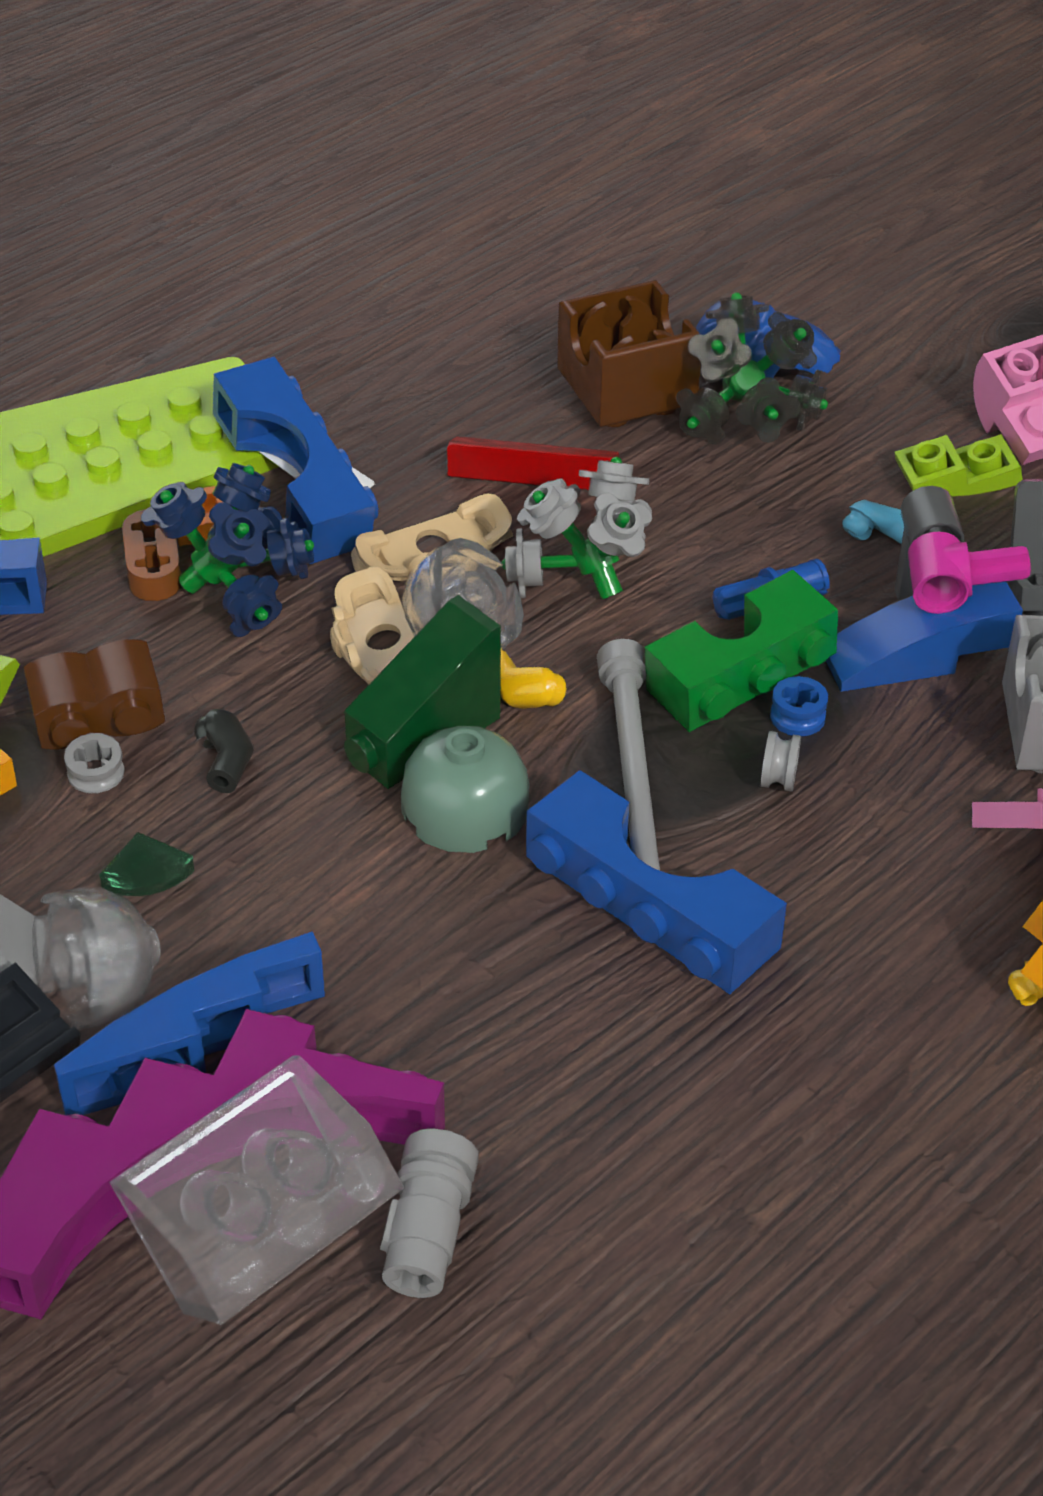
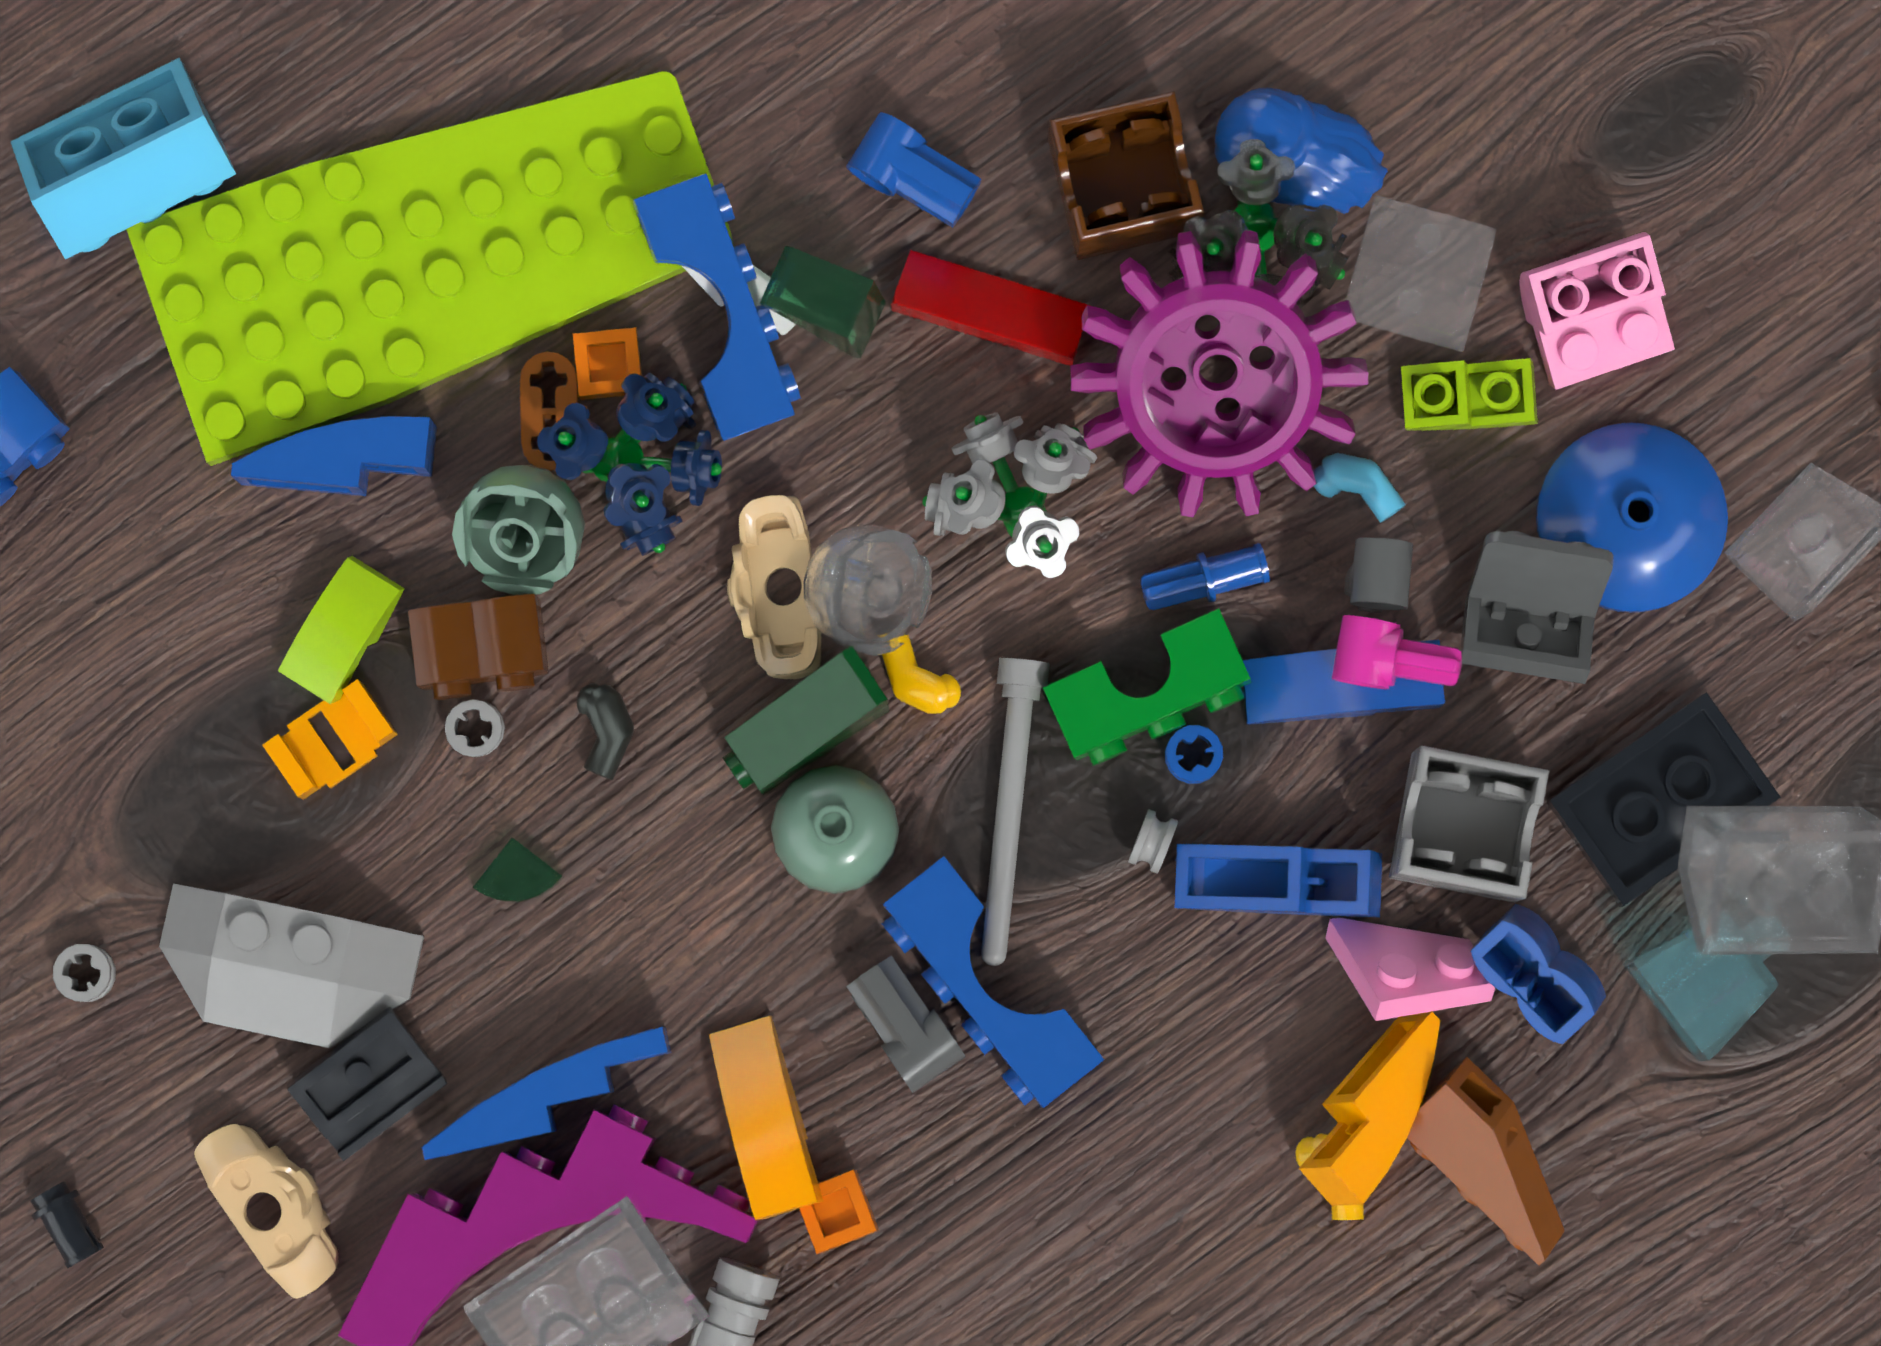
camera: 10 degrees right, 40 degrees up
(93, 954) = (466, 1012): clear cylinder -> none
(127, 592) = (519, 529): none -> sand green cylinder
(395, 442) = (825, 300): none -> clear green slope
(438, 381) = (898, 161): none -> blue piece
(441, 1020) = (764, 1119): none -> light orange slope
(478, 520) = (903, 430): tan piece -> none
(530, 1091) = (841, 1215): none -> orange plate
(580, 936) = (911, 1034): none -> dark grey piece
(763, 390) = (1180, 419): none -> magenta gear
(887, 406) = (1419, 272): none -> clear slope
(914, 774) = (1278, 880): none -> blue slope

